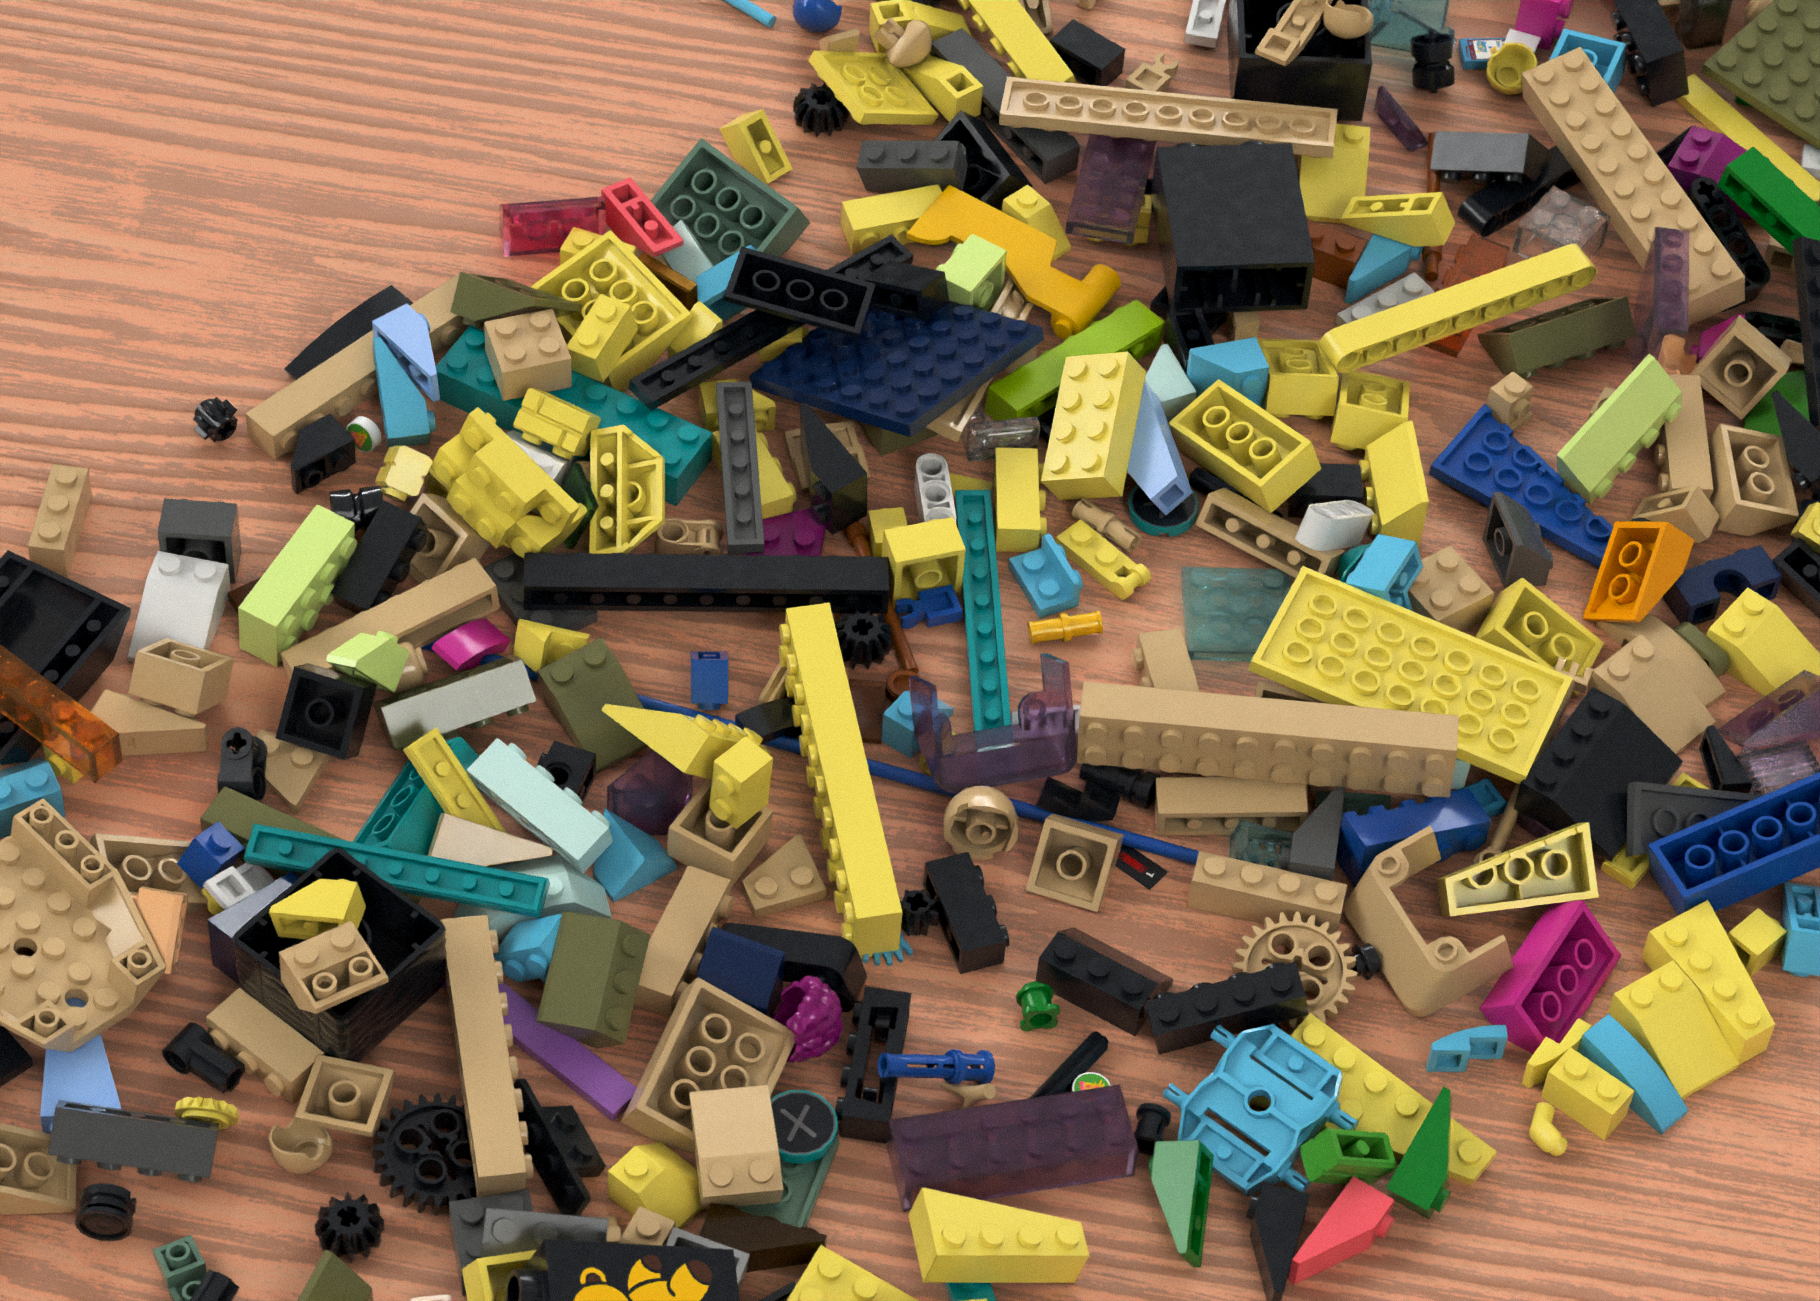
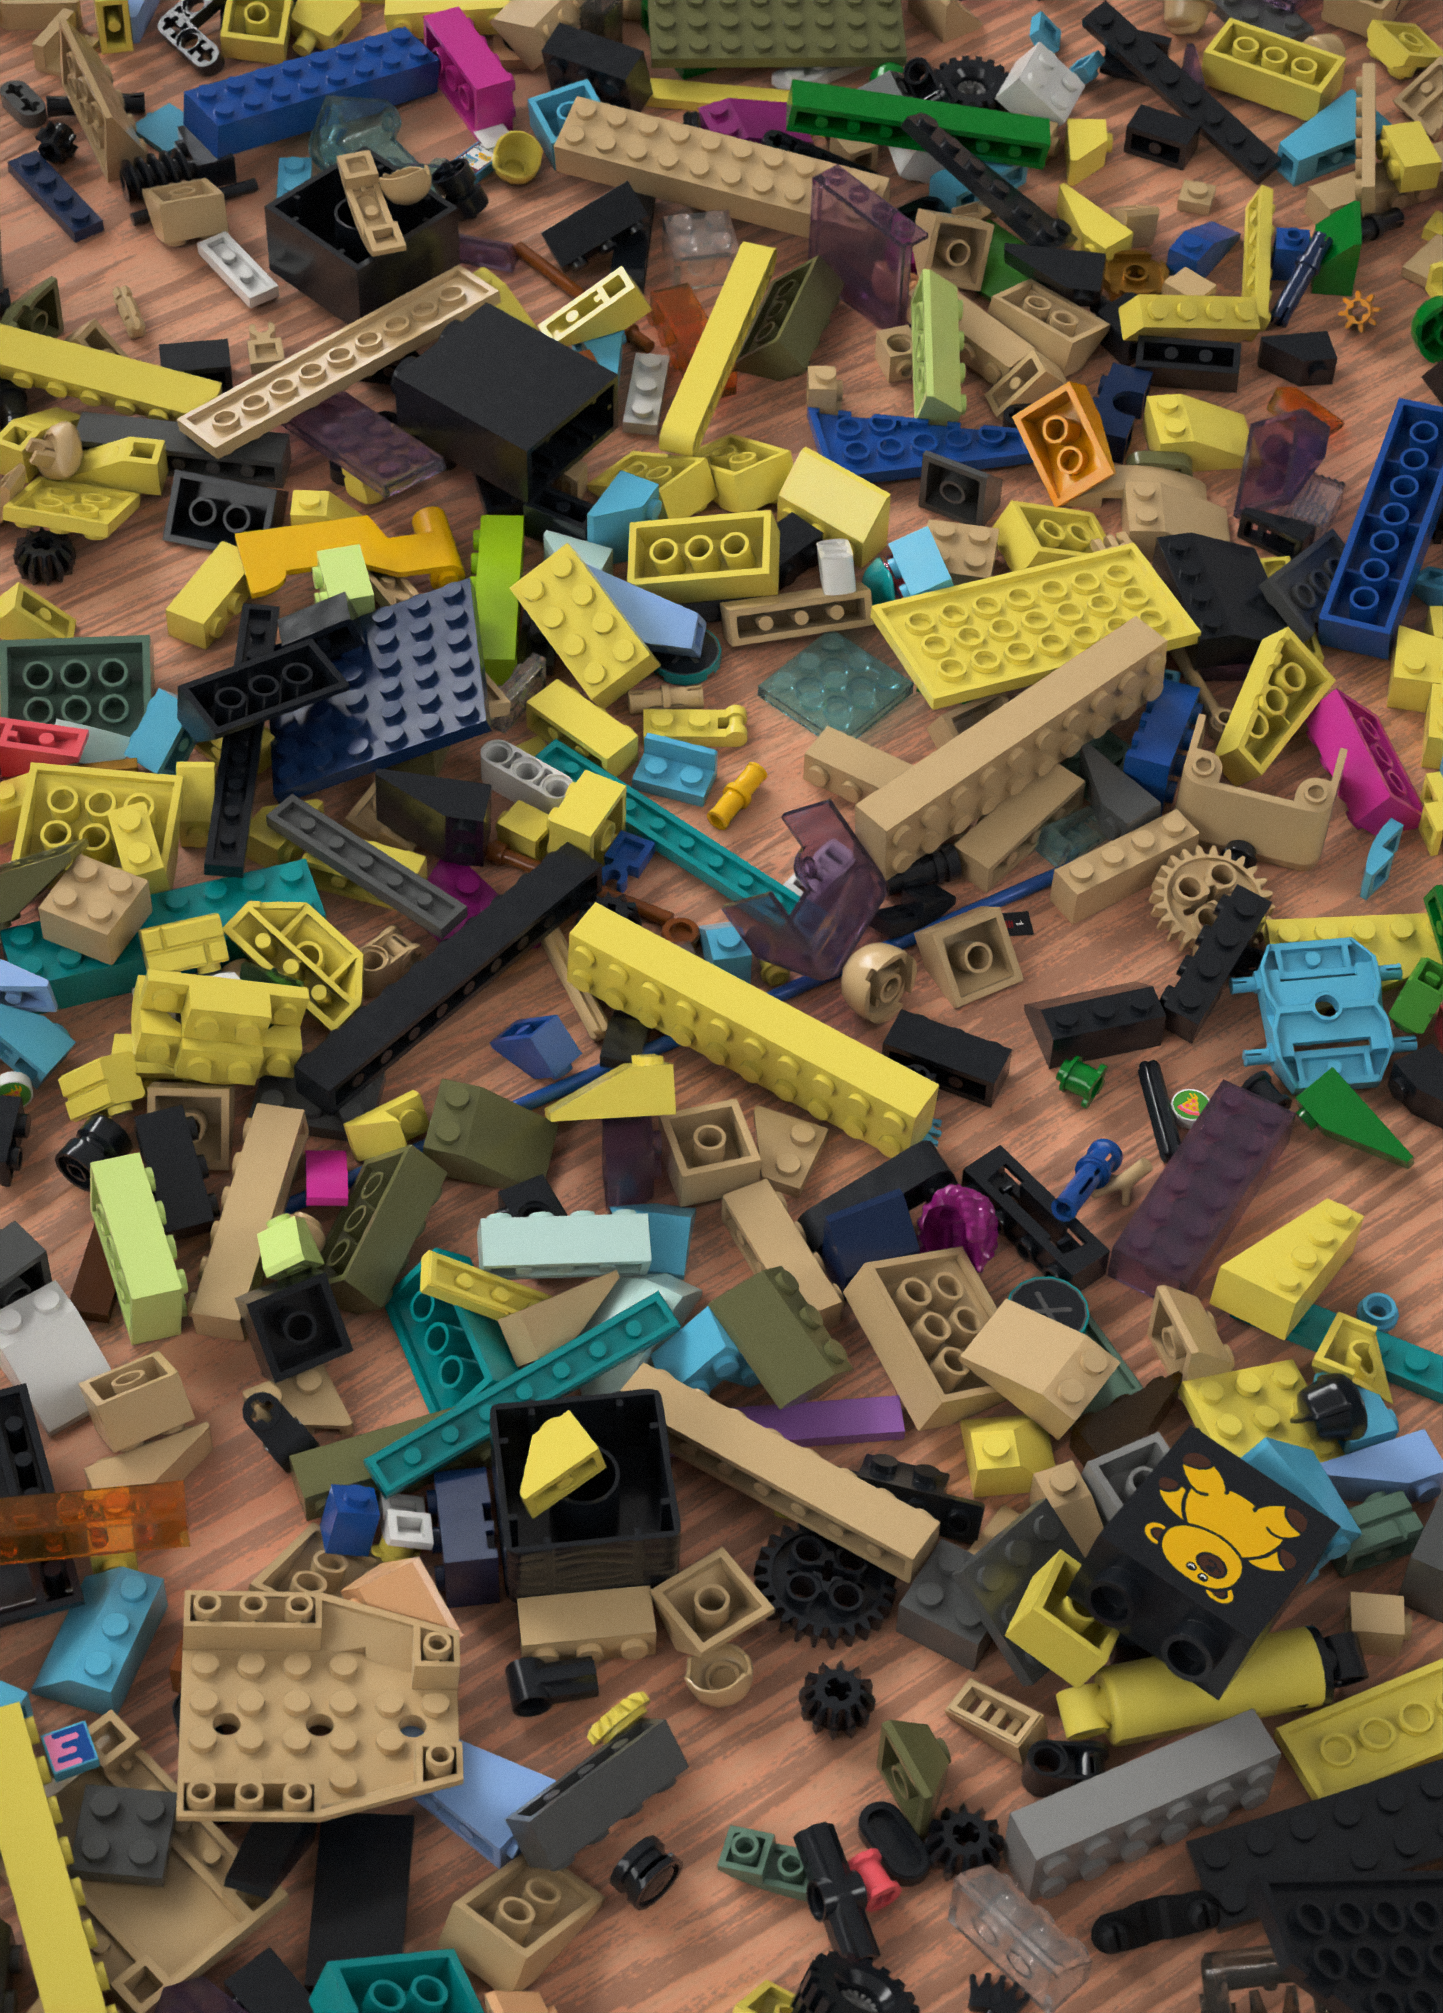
camera: 45 degrees left, 0 degrees up
(330, 969) = (641, 1499): tan slope -> none
(740, 782) = (710, 1089): light yellow brick -> none
(866, 1221) = (1186, 1336): none -> tan slope
(911, 165) = (183, 541): dark grey brick -> none

